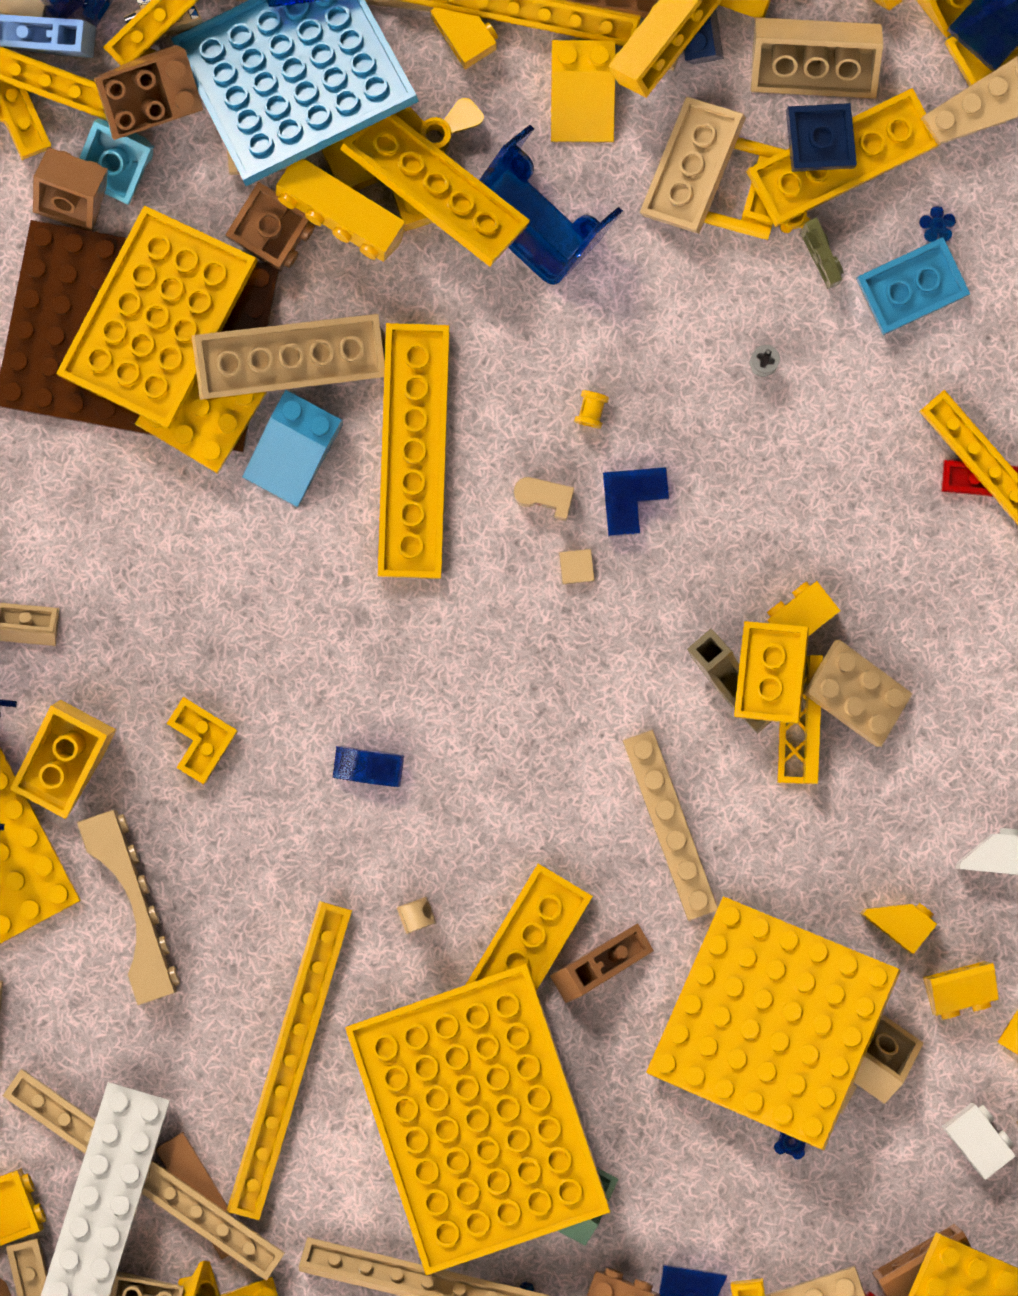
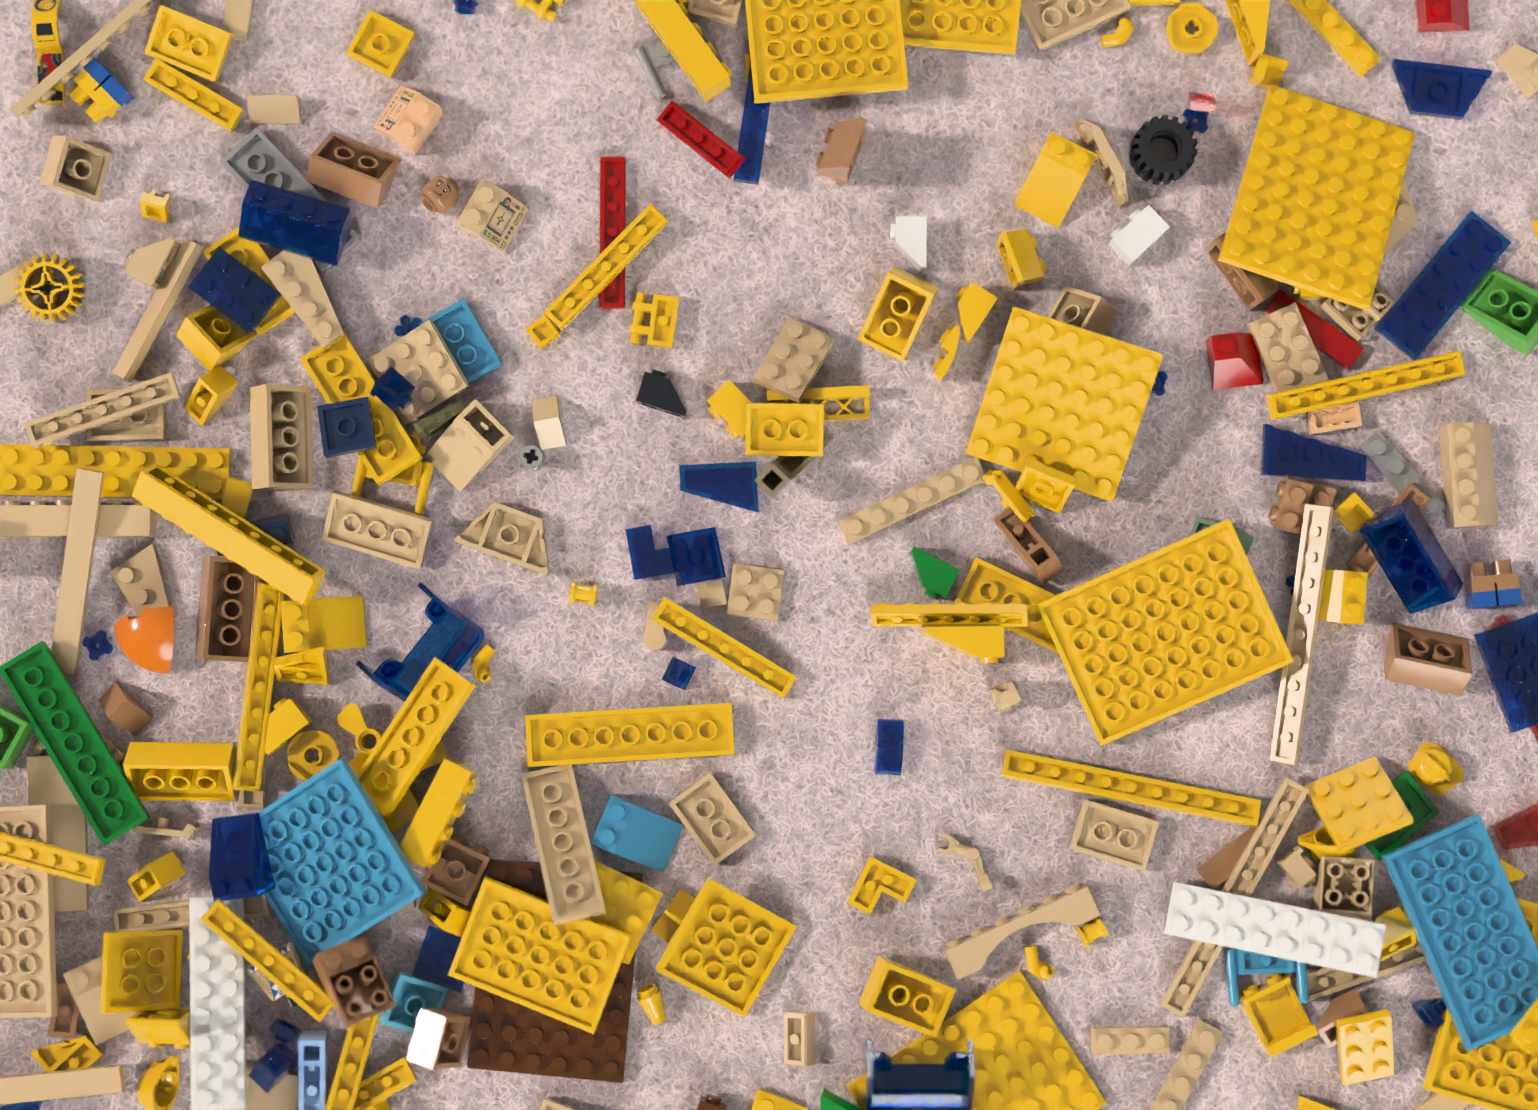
camera: 90 degrees left, 0 degrees up
(61, 1184) = (1246, 962): none -> dark azure plate
(83, 922) = (1037, 966): none -> yellow arm
(85, 449) = (652, 1003): none -> yellow cone
(118, 993) = (1091, 931): none -> yellow bush
(144, 543) = (726, 947): none -> yellow plate
(166, 194) = (437, 958): none -> clear blue plate
(171, 1257) = (1297, 867): none -> tan brick
(184, 490) = (673, 916): none -> yellow panel
(219, 209) = (445, 912): none -> yellow slope
(228, 855) = (971, 853): none -> tan piece
(234, 1033) = (1114, 835): none -> tan plate
(301, 541) = (712, 819): none -> tan plate
(442, 66) = (311, 740): none -> yellow plate
(482, 517) = (678, 673): none -> clear blue plate
(488, 883) = (973, 641): none -> yellow slope
(509, 573) = (723, 647): none -> yellow plate
(516, 277) = (480, 664): none -> yellow arm
(523, 855) = (949, 615): none -> yellow plate
(532, 62) = (303, 667): none -> yellow wing
(574, 620) = (755, 592): none -> tan plate
(576, 842) = (933, 574): none -> green slope
(624, 550) = (696, 556): none -> clear blue plate
(666, 946) = (1010, 495): none -> yellow piece
(669, 324) = (508, 536): none -> tan wing
(673, 989) = (1045, 485): none -> yellow plate
(713, 592) = (722, 483): none -> clear blue wing
(786, 285) = (468, 445): none -> tan slope
(806, 384) = (548, 422): none -> tan slope
(809, 1245) = (1233, 361): none -> red slope
(829, 524) = (659, 394): none -> black slope
(859, 888) = (949, 346): none -> yellow slope
(870, 193) = (393, 390): none -> clear blue brick
(882, 230) = (427, 365): none -> tan plate
(906, 829) = (898, 313): none -> yellow slope
(919, 535) = (662, 320): none -> yellow plate
(920, 388) = (543, 332): none -> yellow tile

